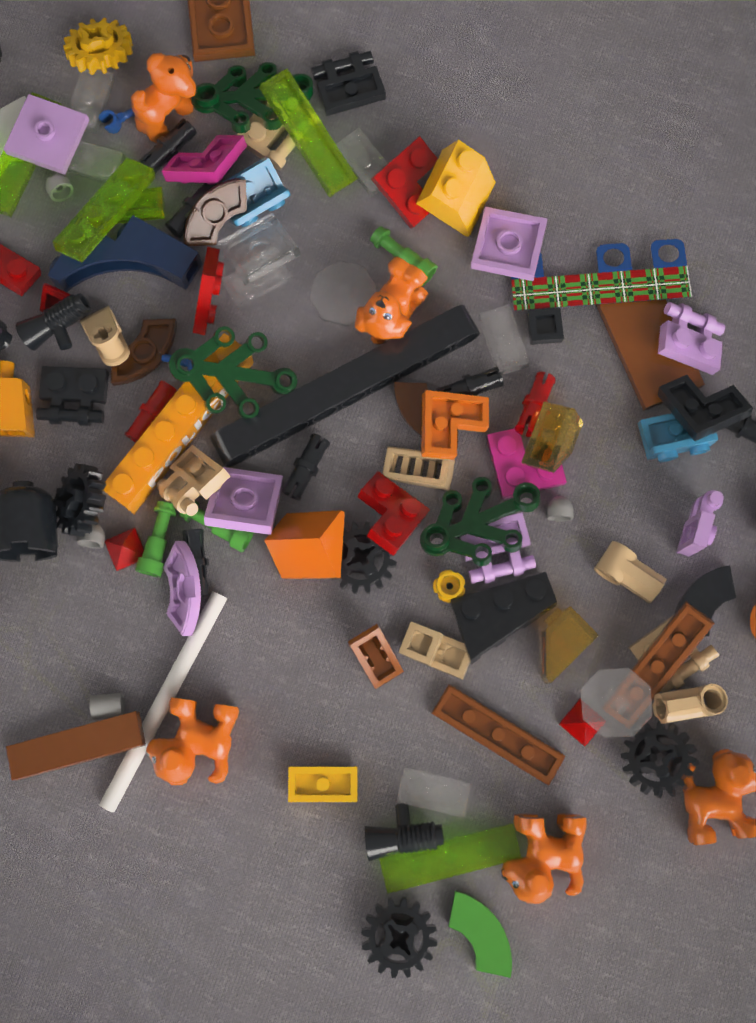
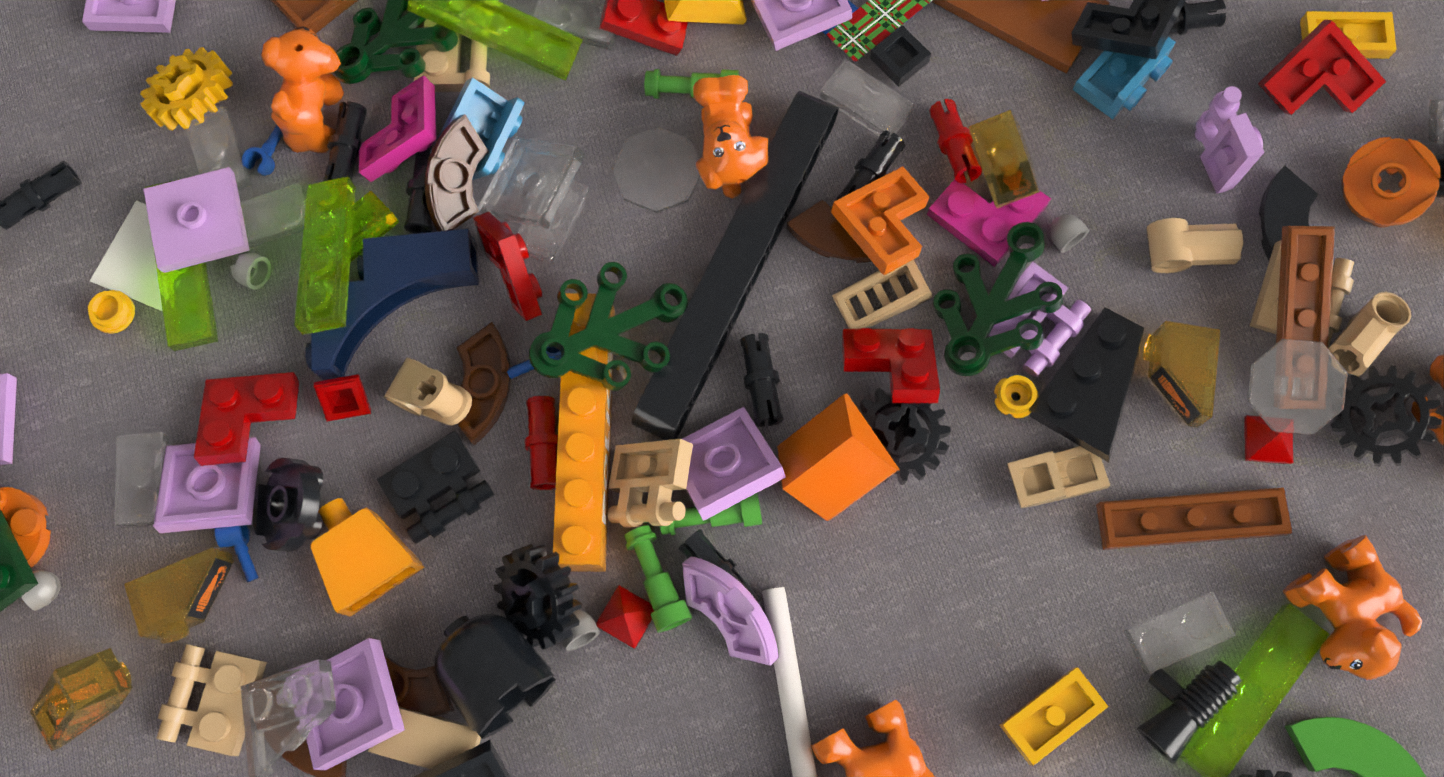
camera: 30 degrees left, 5 degrees down
(54, 321) = (355, 416): black piece -> none
(375, 656) = (997, 529): dark orange slope -> none

